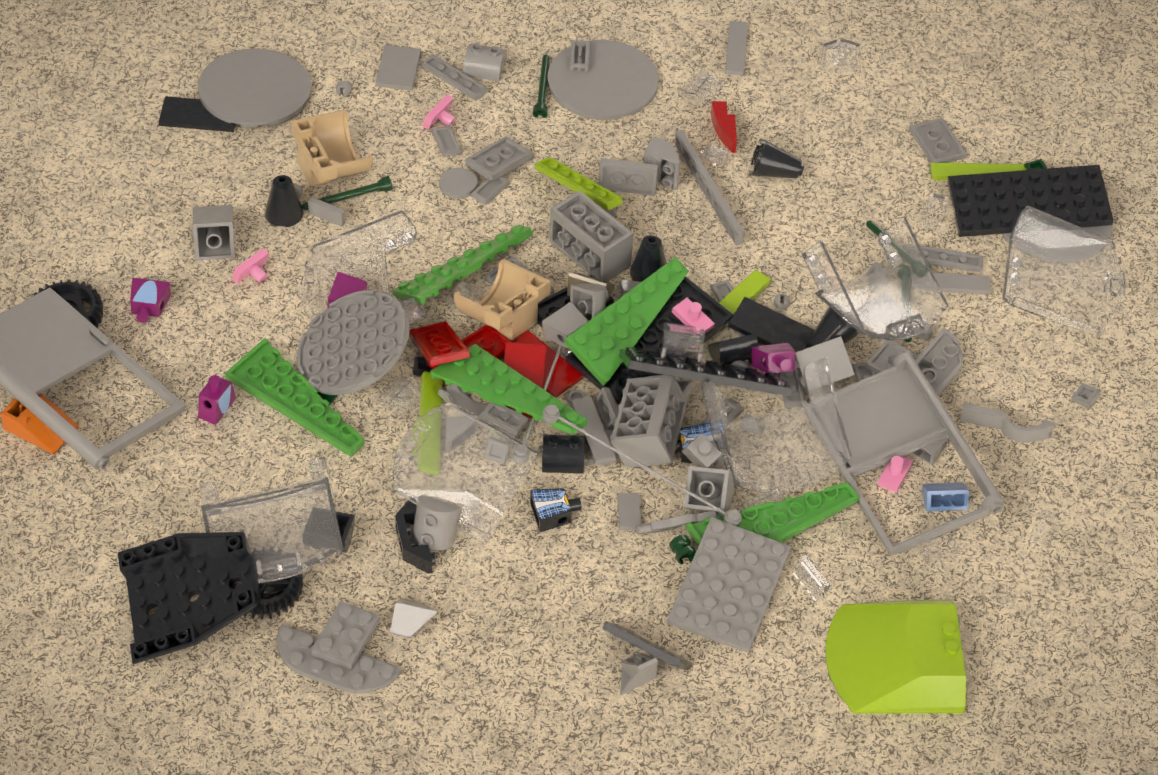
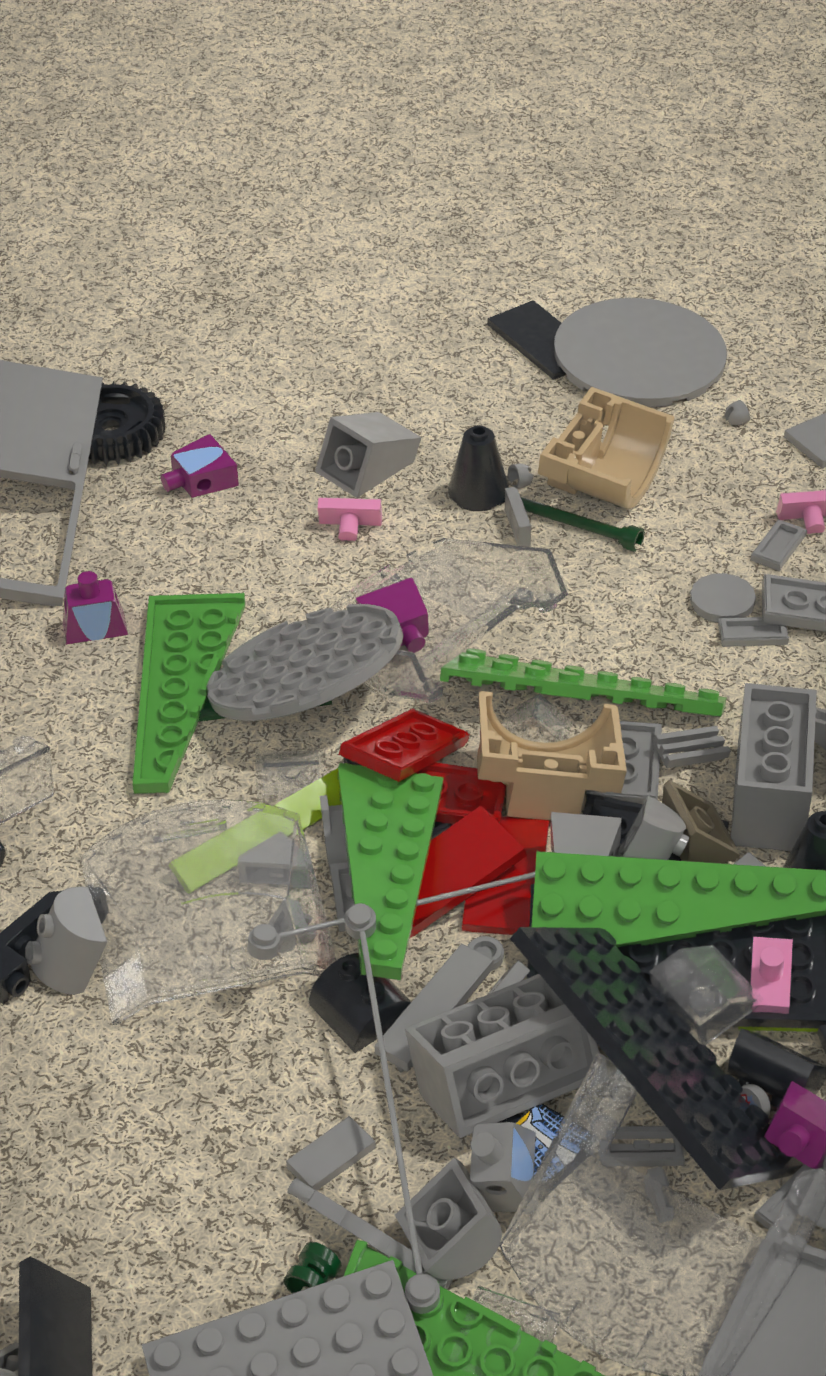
camera: 55 degrees right, 5 degrees down
(540, 248) = (689, 742): none -> light grey tile
(552, 507) = (239, 1056): torso -> none

